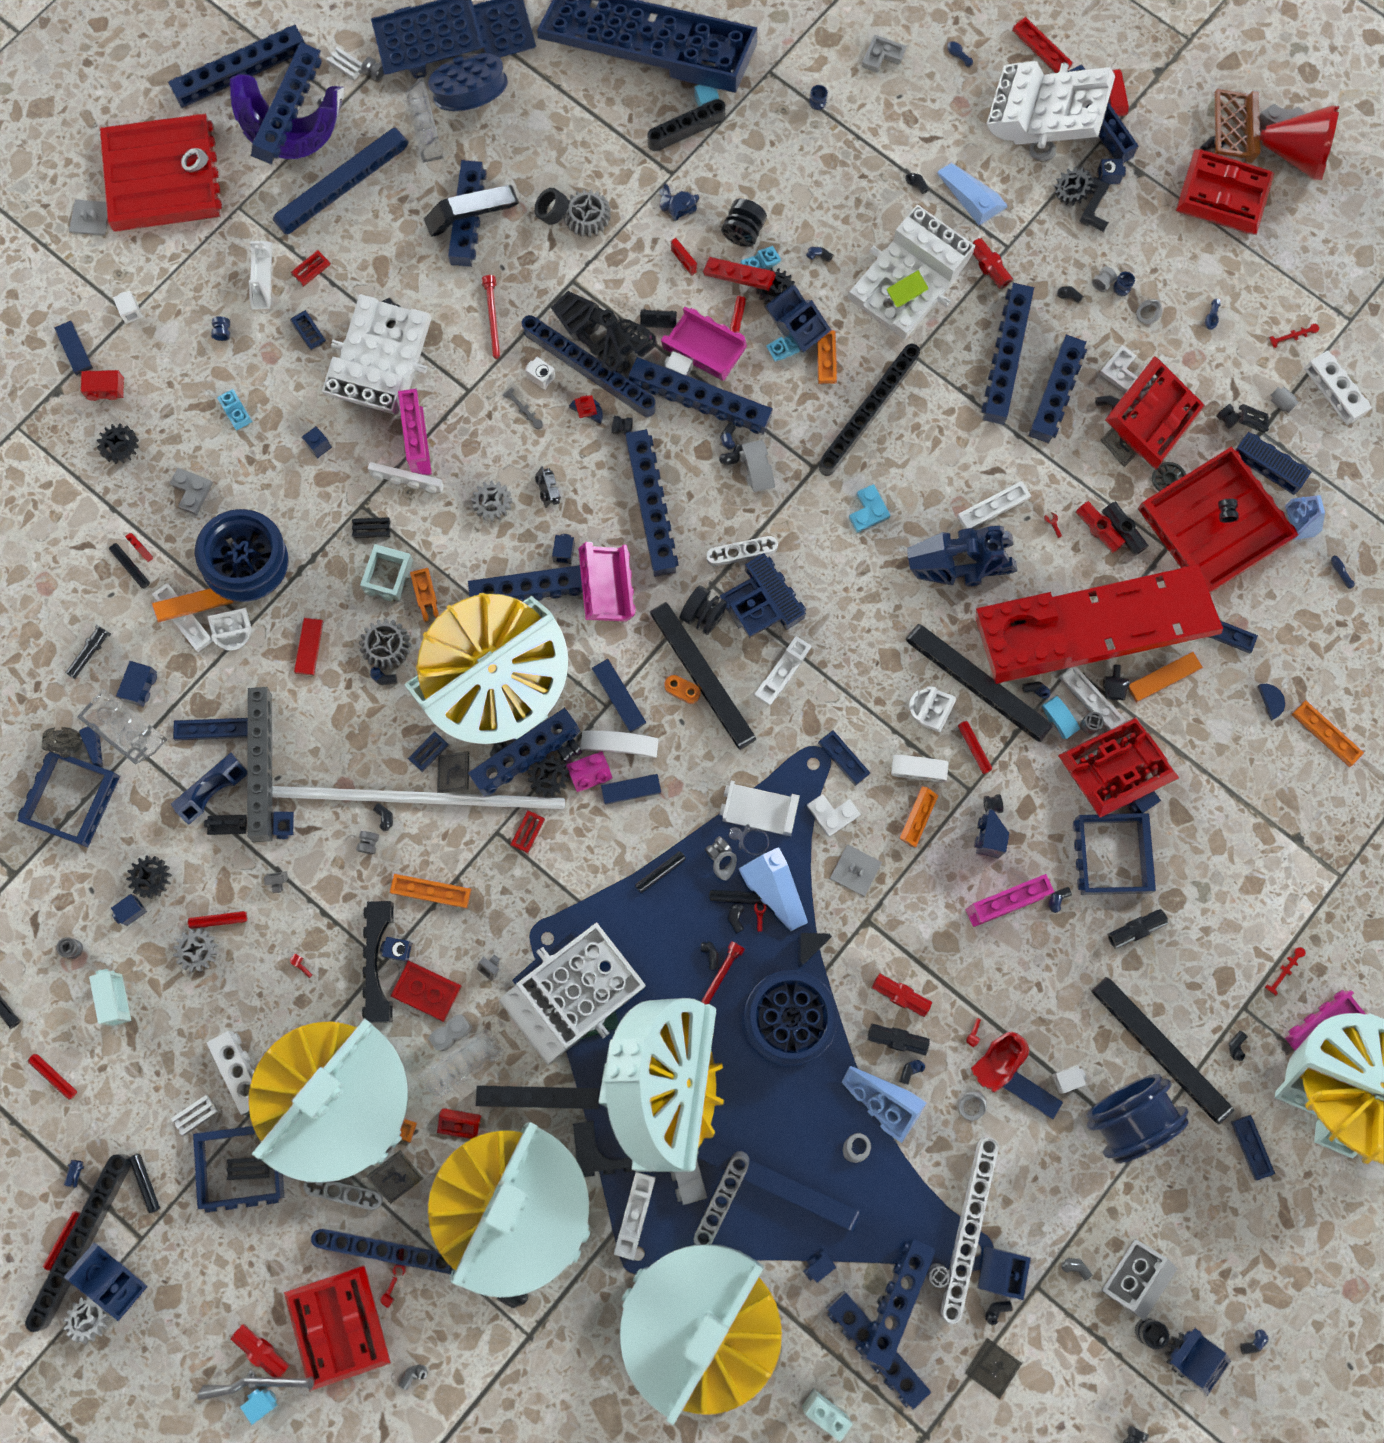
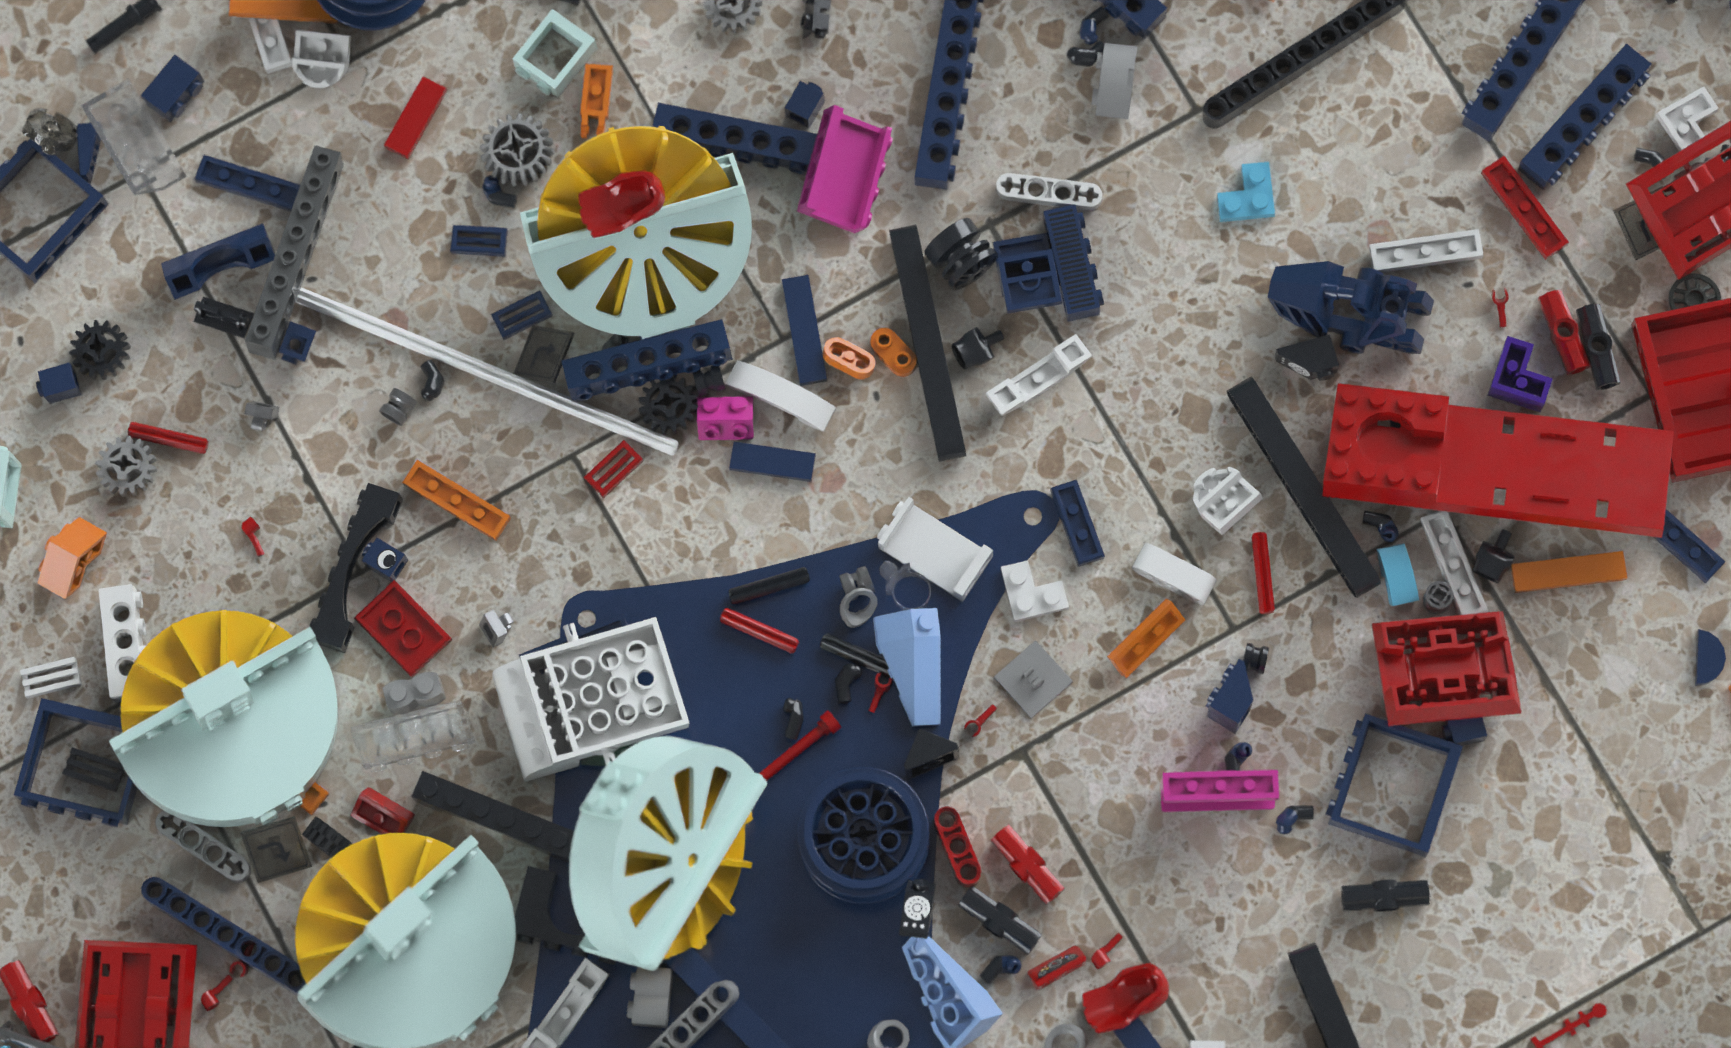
camera: 30 degrees right, 0 degrees up
(177, 1027) = (69, 555): none -> orange brick
(383, 719) = (485, 251): none -> dark blue tile
(428, 1157) = (325, 837): none -> black tyre
(473, 653) = (621, 202): none -> red hair
(656, 703) = (849, 358): none -> orange plate
(665, 904) = (759, 630): none -> red axle
(734, 667) = (975, 348): none -> black piece
(832, 911) = (981, 719): none -> red hand
(844, 1054) = (917, 908): none -> black slope
(854, 1011) = (954, 833): none -> red beam
(947, 1056) = (1057, 967): none -> slope
(950, 599) = (1310, 358): none -> black slope
(1006, 874) = (1237, 756): none -> arm
(1043, 457) = (1524, 207): none -> red plate
(1082, 567) = (1514, 382): none -> dark purple brick

